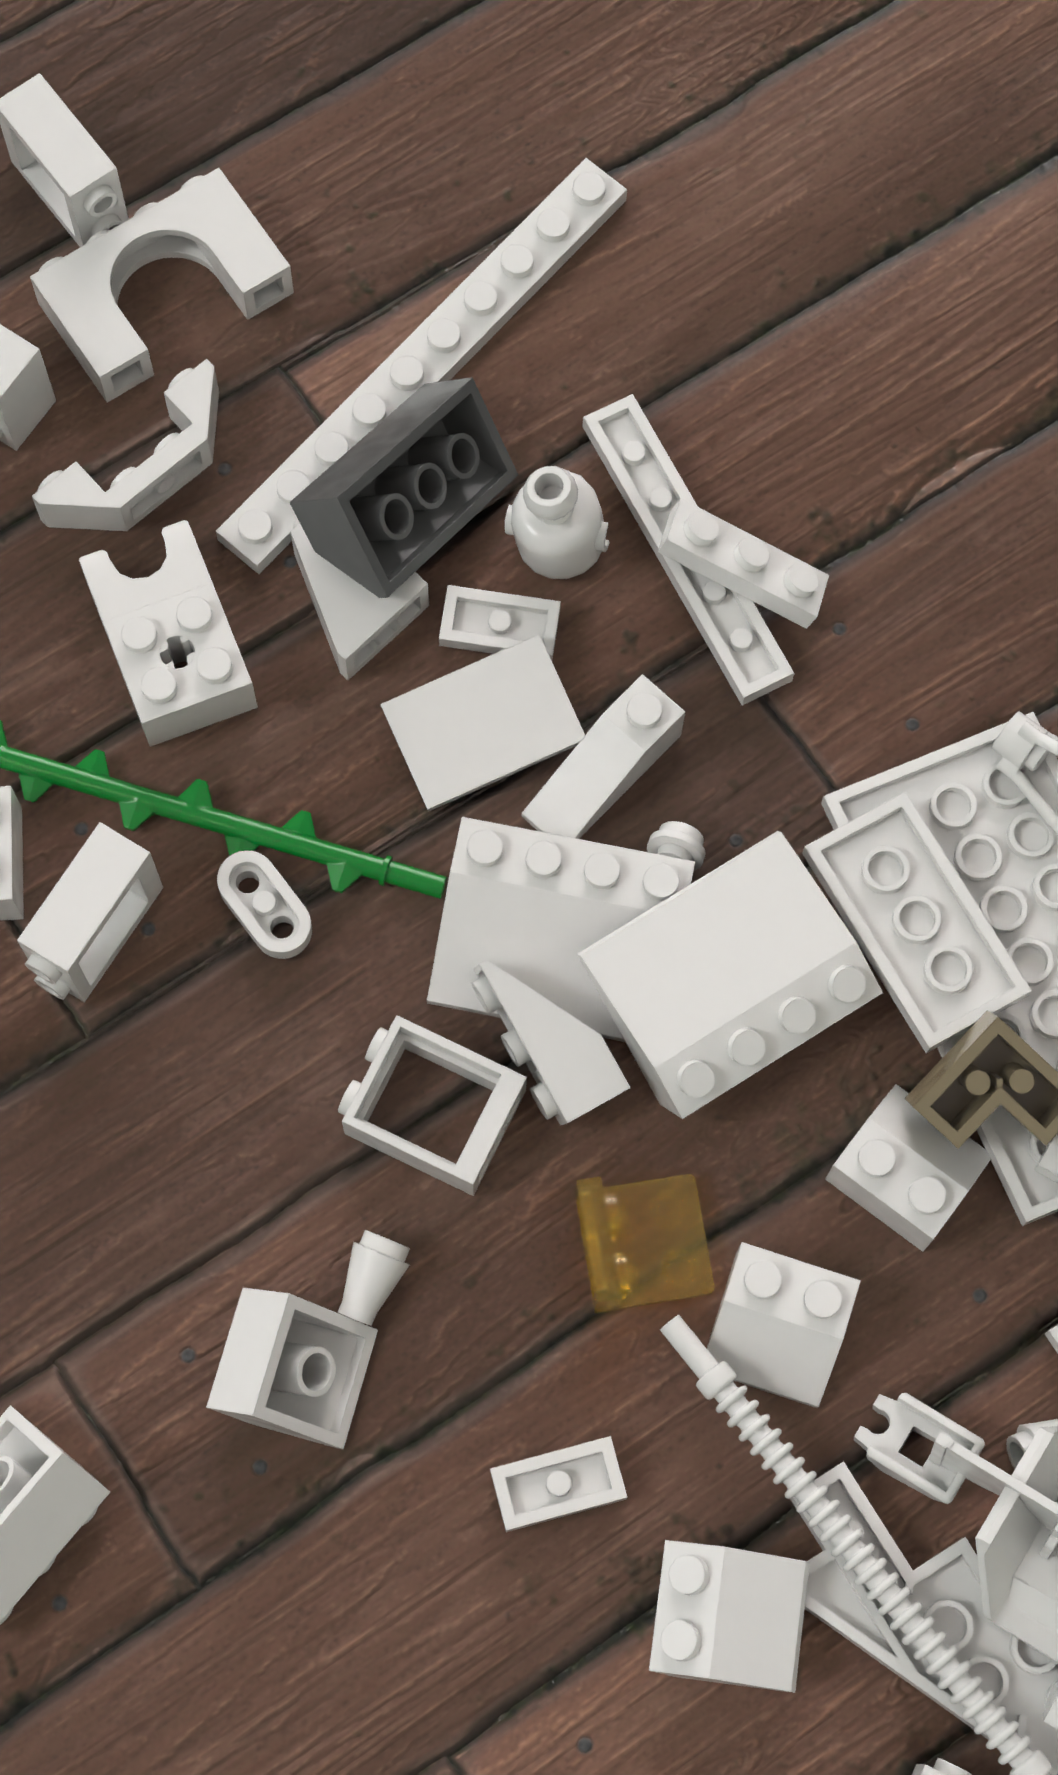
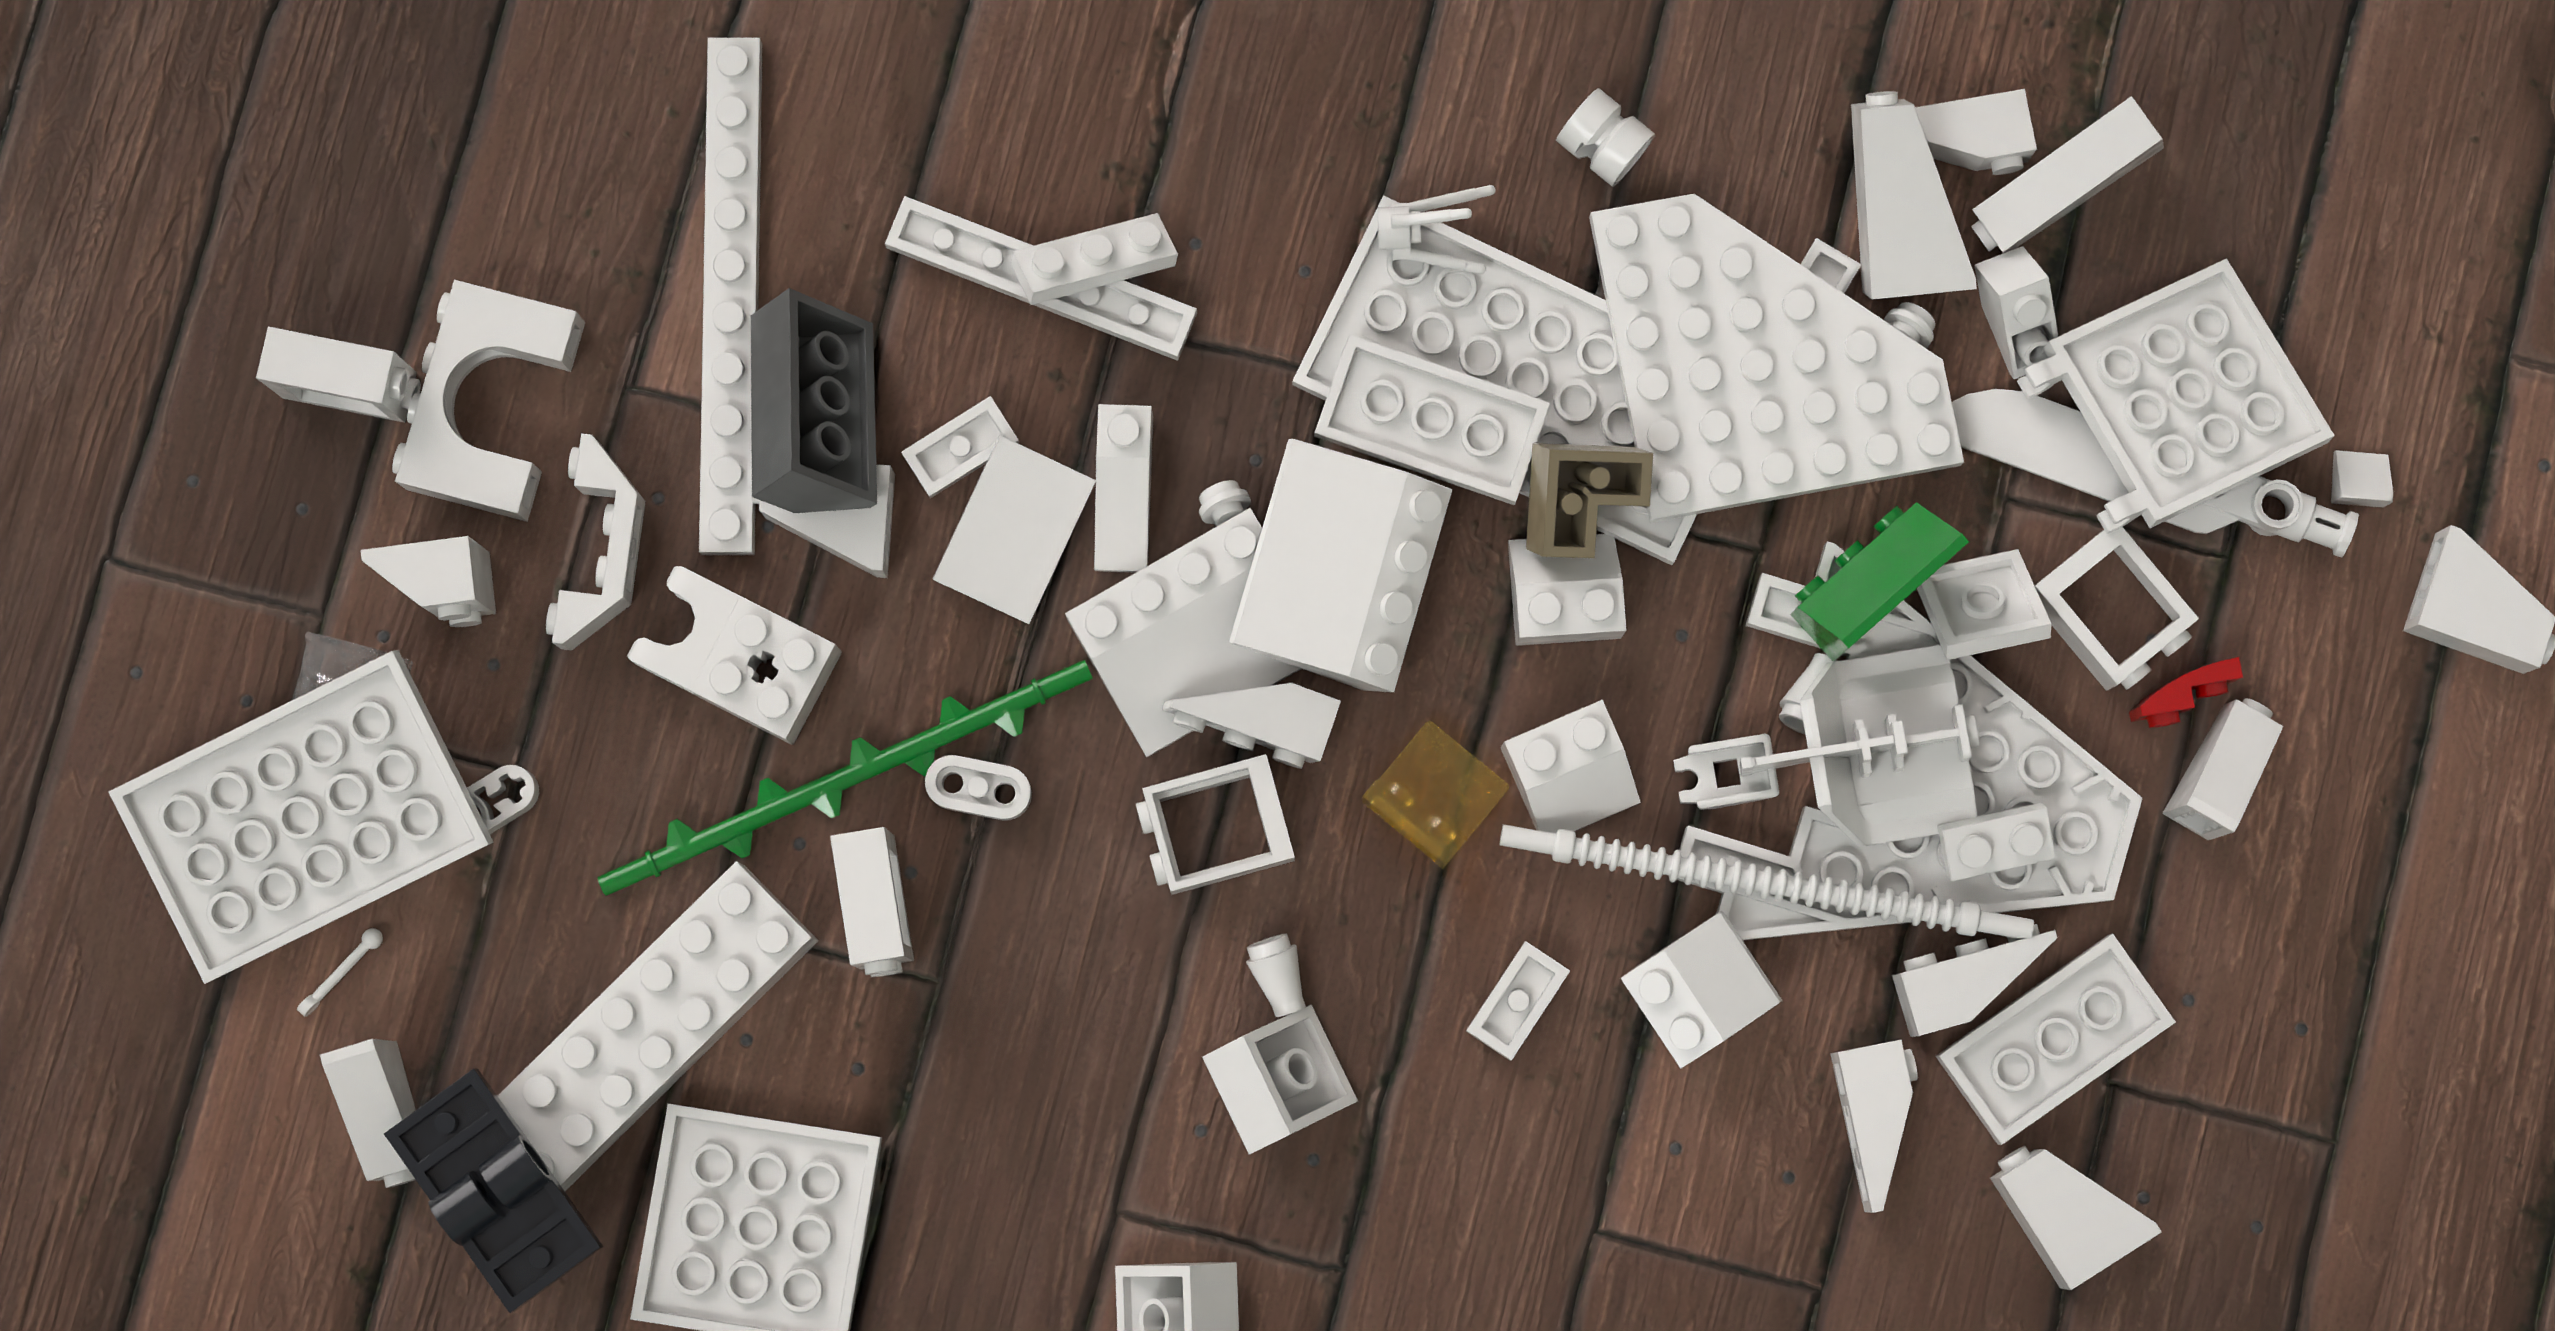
camera: 40 degrees left, 10 degrees up
(557, 523) = (940, 341): white piece -> none

